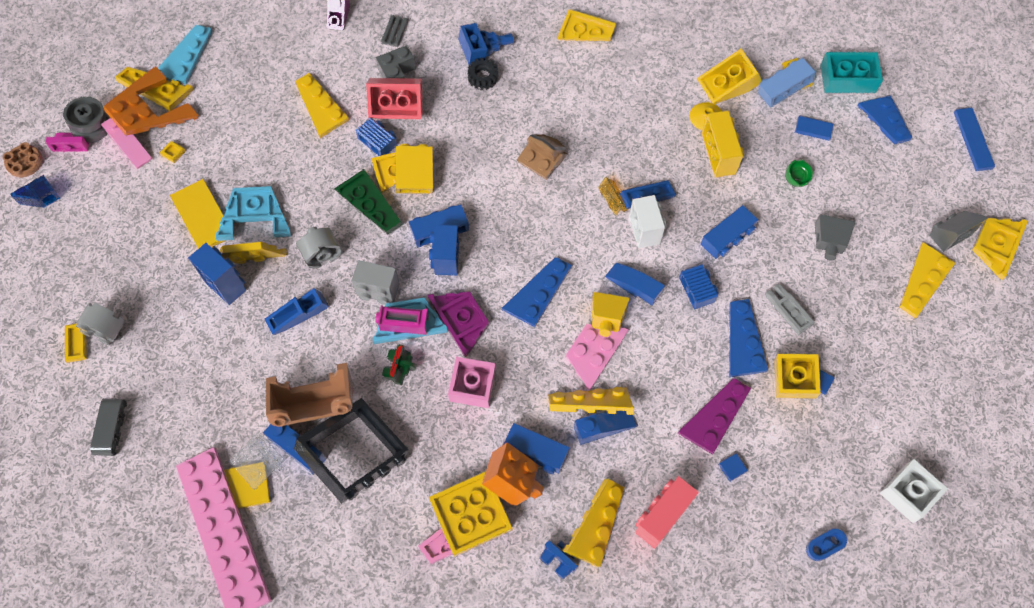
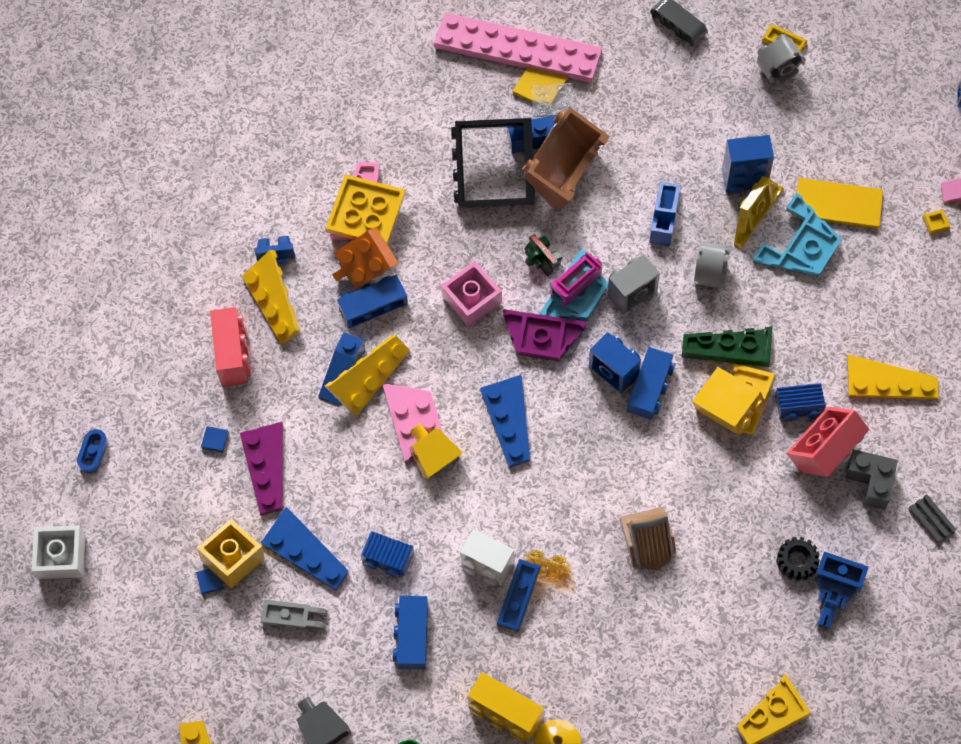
camera: 135 degrees right, 0 degrees up
(635, 283) = (441, 502): blue slope -> none

